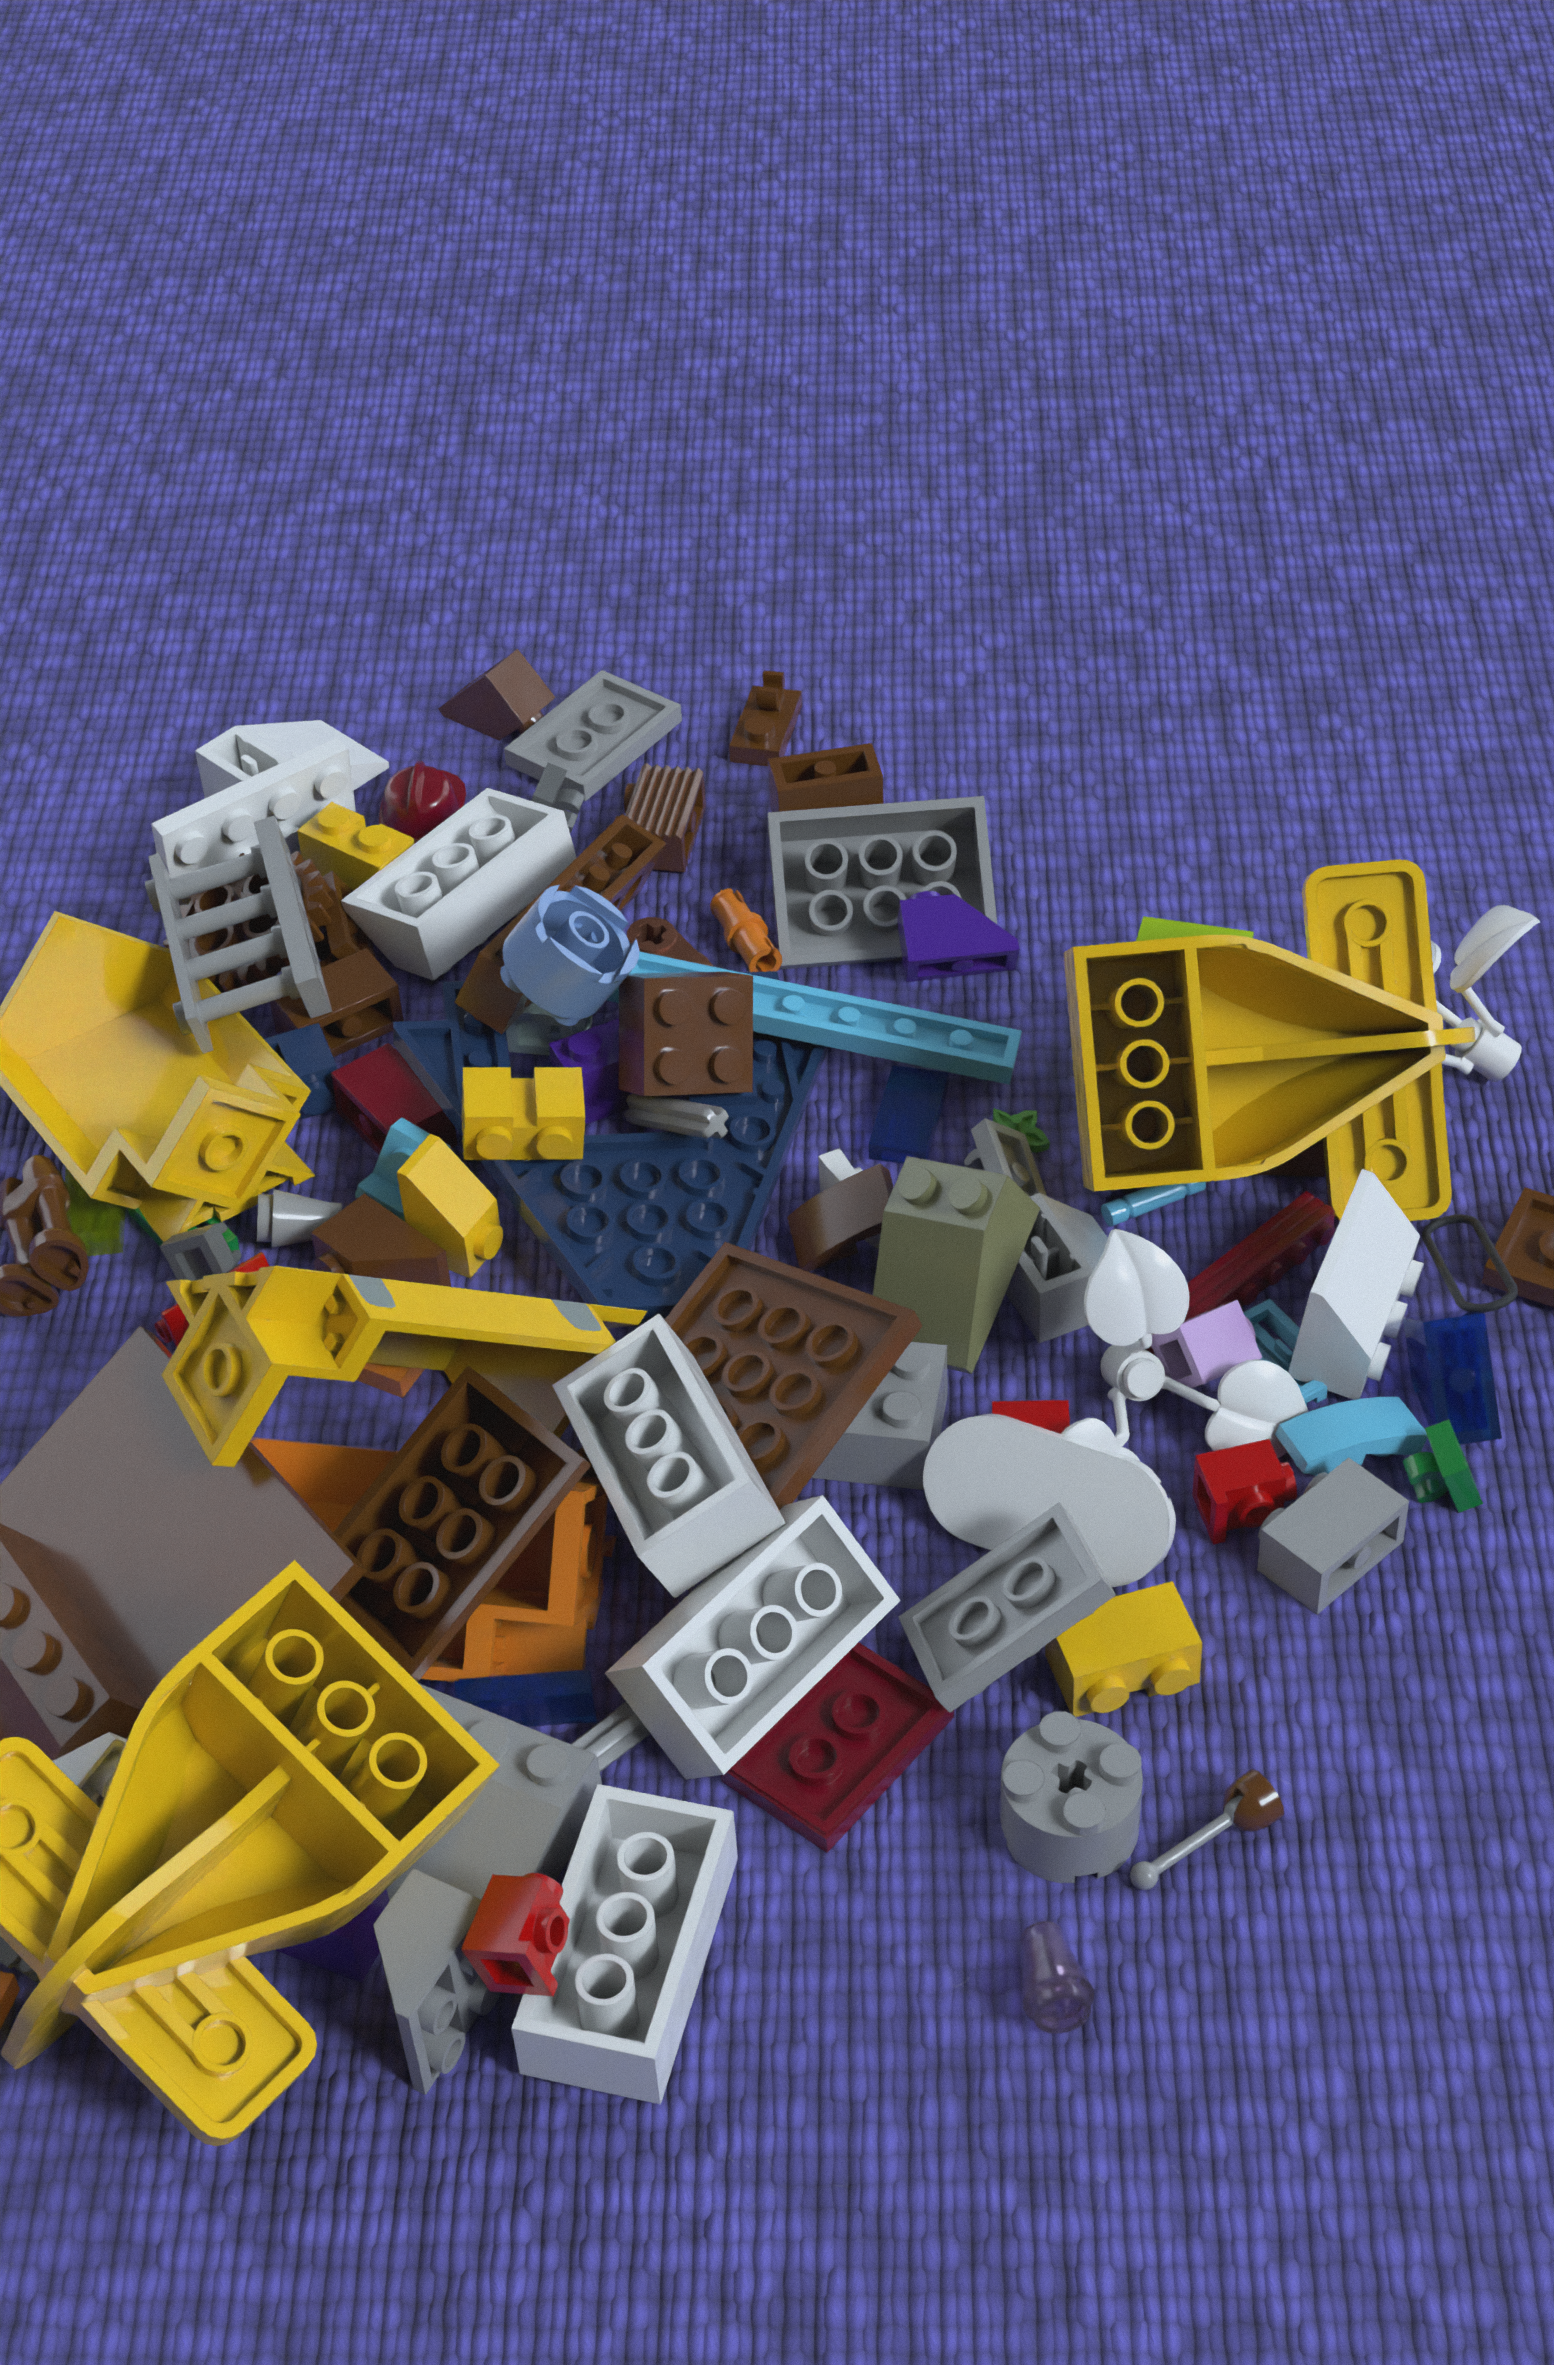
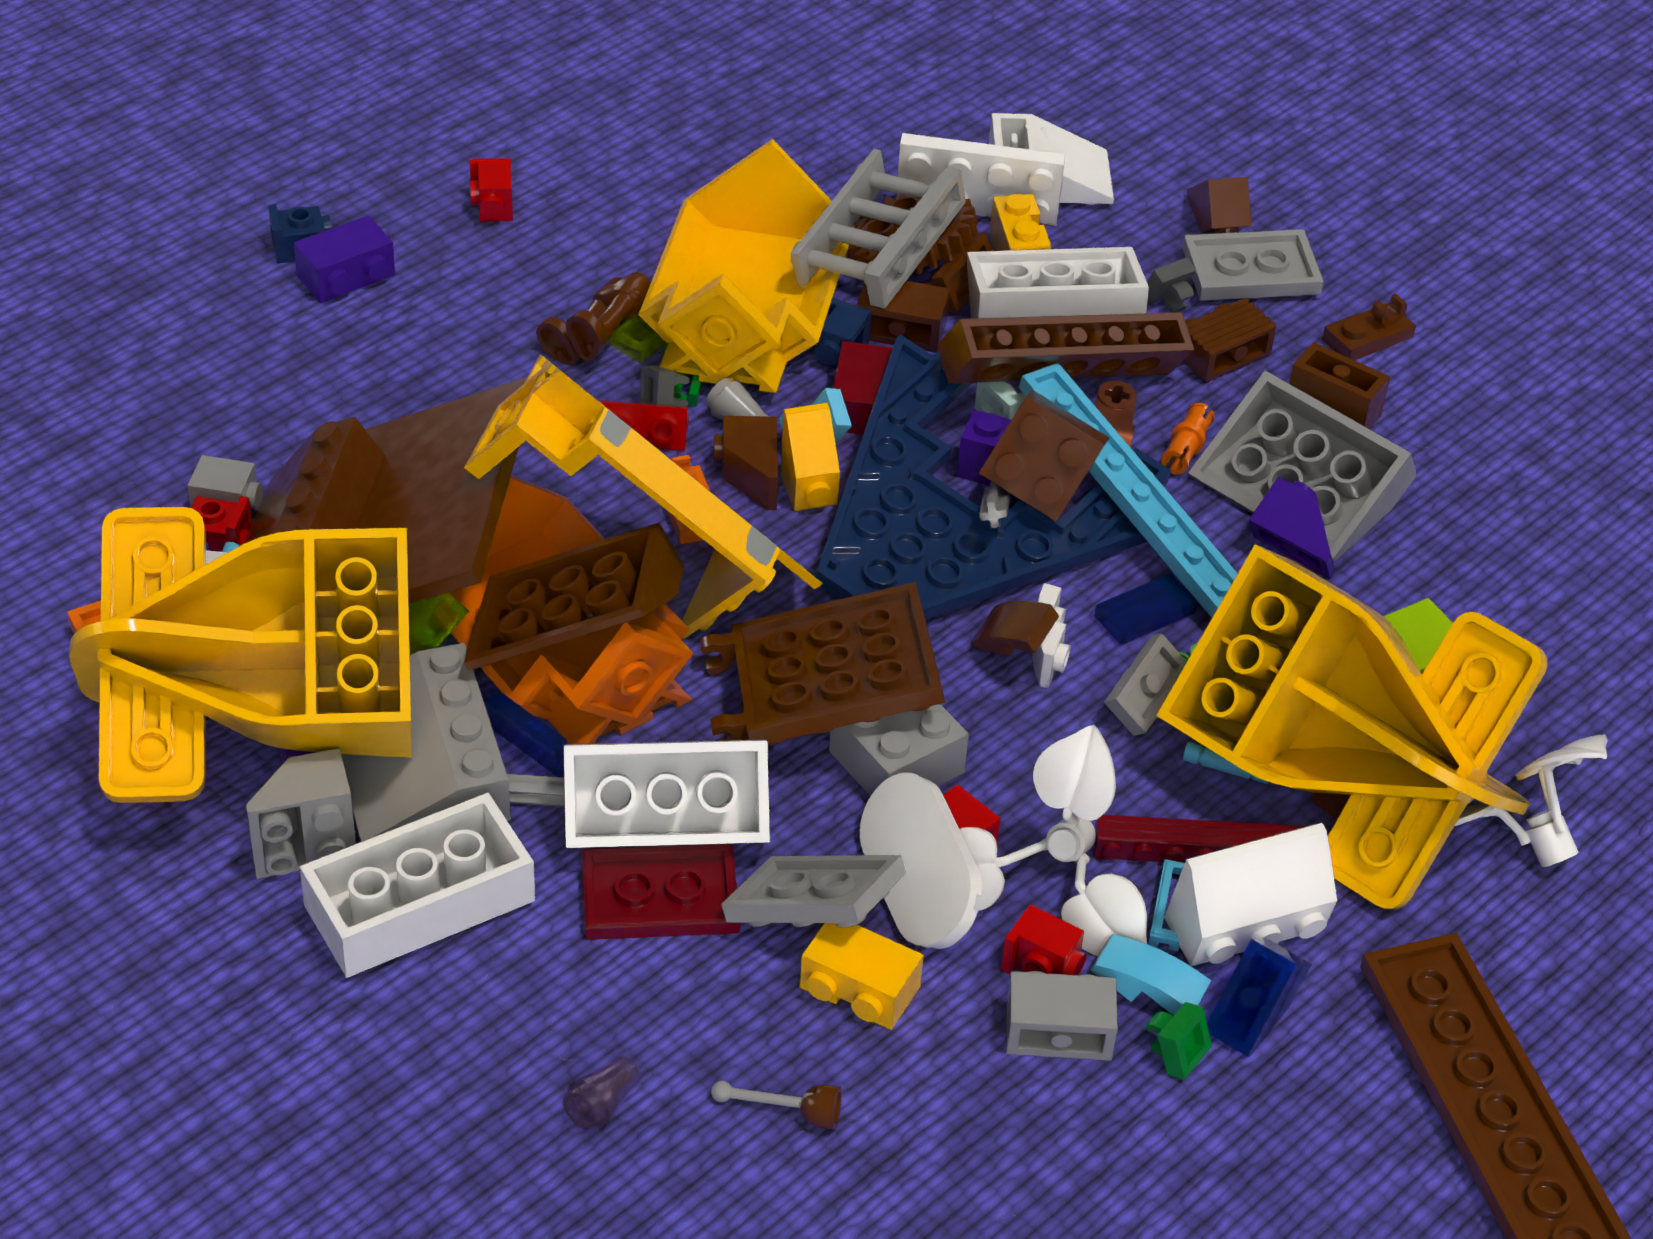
camera: 40 degrees right, 0 degrees up
(420, 799) = (1103, 228): dark red piece -> none
(518, 1934) = (349, 821): red brick -> none
(523, 1115) = (895, 433): yellow brick -> none
(569, 953) = (1008, 354): medium blue brick -> none
(667, 1456) = (722, 658): white brick -> none
(952, 1251) = (1028, 688): olive slope -> none
(1056, 1269) = (1132, 738): light grey slope -> none
(1070, 1799) = (725, 1015): light grey brick -> none
(1207, 1345) = (1128, 856): lavender brick -> none
(1490, 1249) = (1360, 958): black piece -> none

